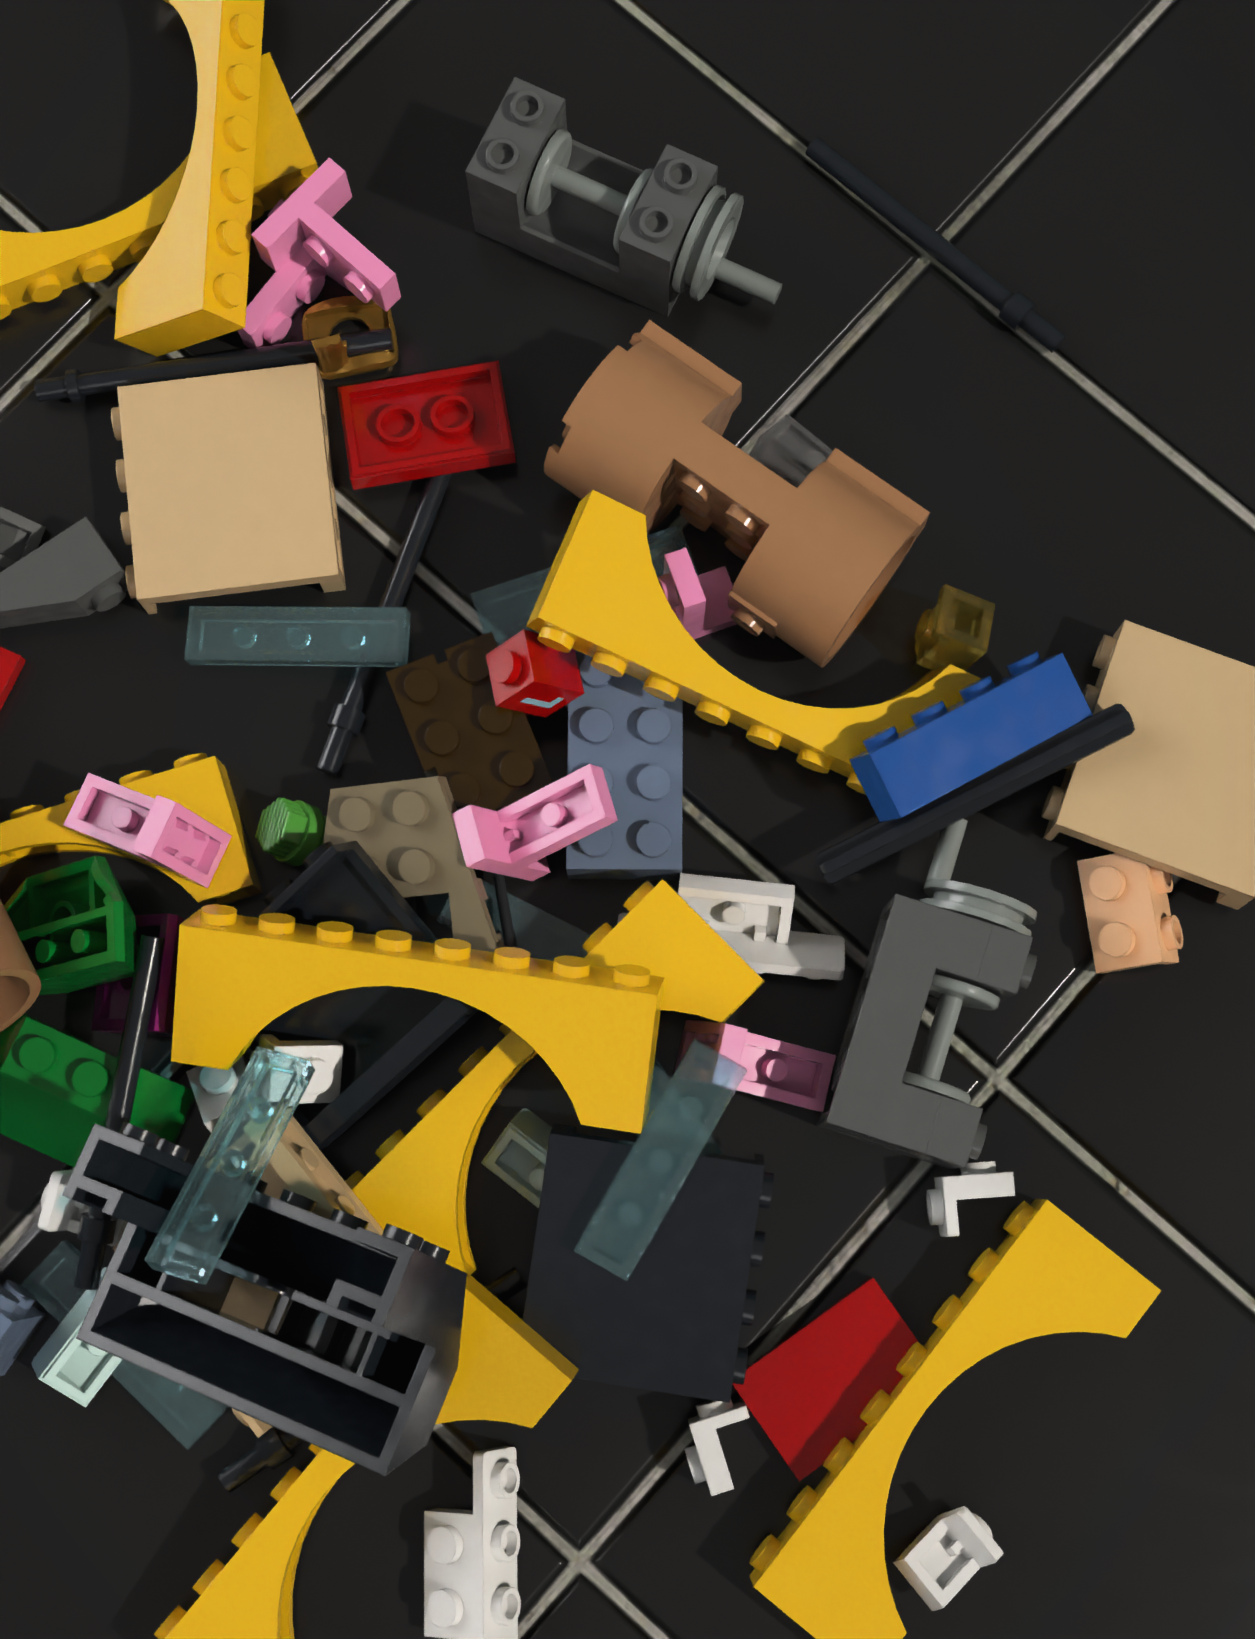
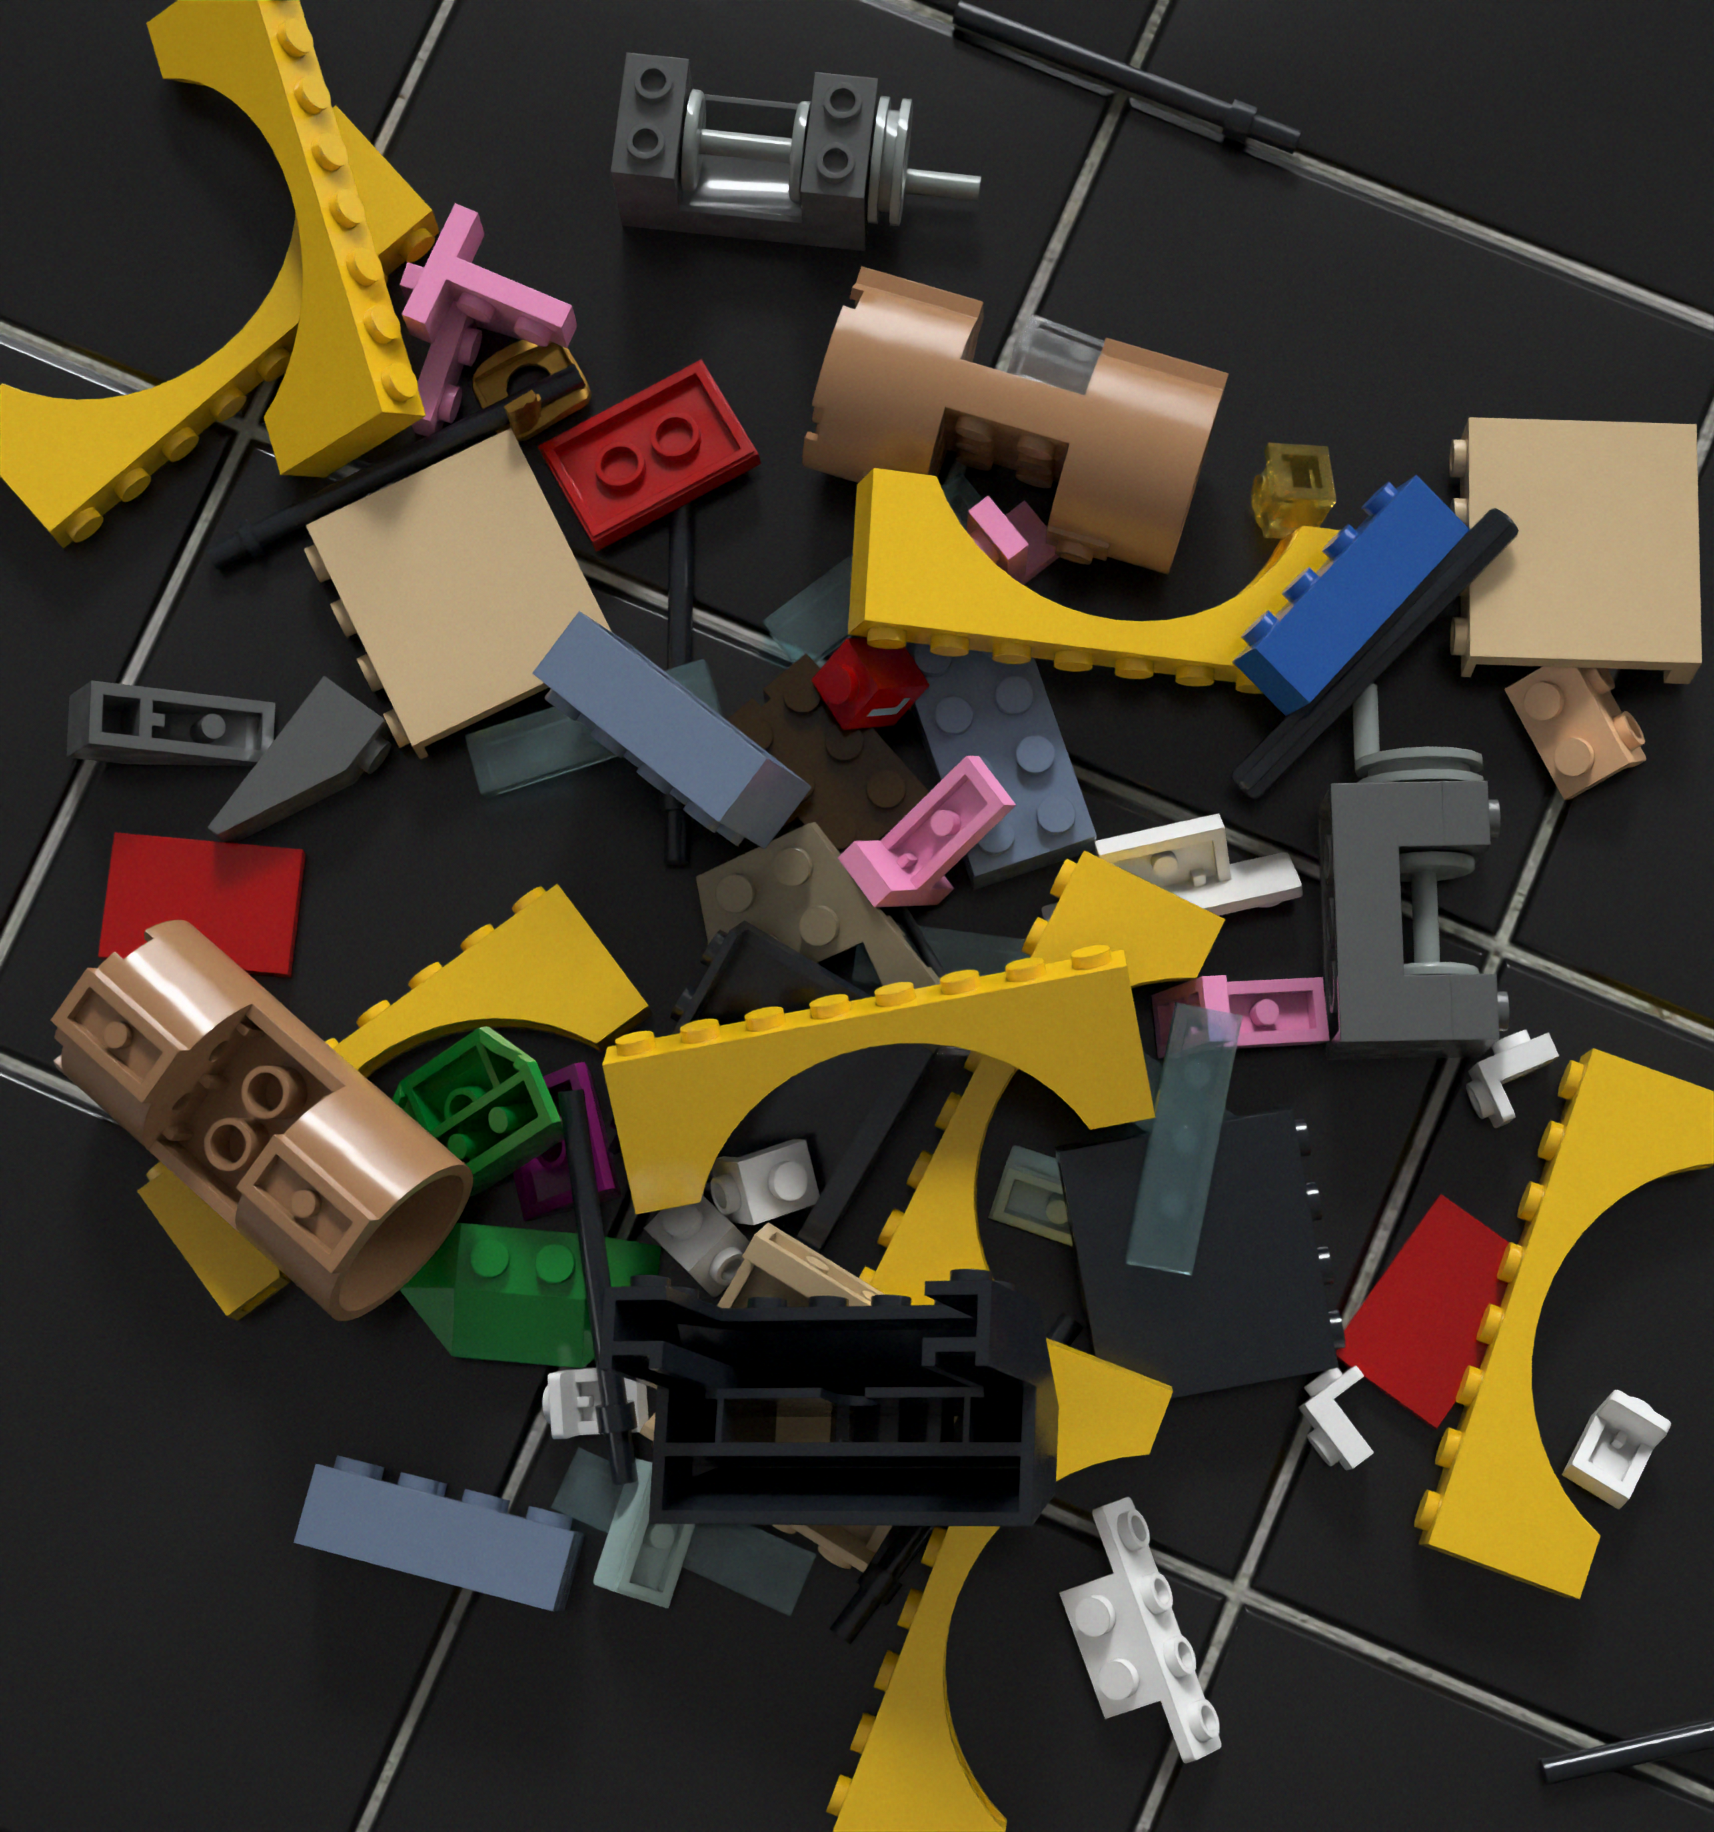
camera: 15 degrees left, 0 degrees up
(149, 829) = (519, 980): bright pink bracket -> none
(230, 1166) = (747, 1290): clear light blue tile -> none
(290, 830) = (666, 937): bright green piece -> none
(344, 660) = (669, 734): none -> sand blue brick

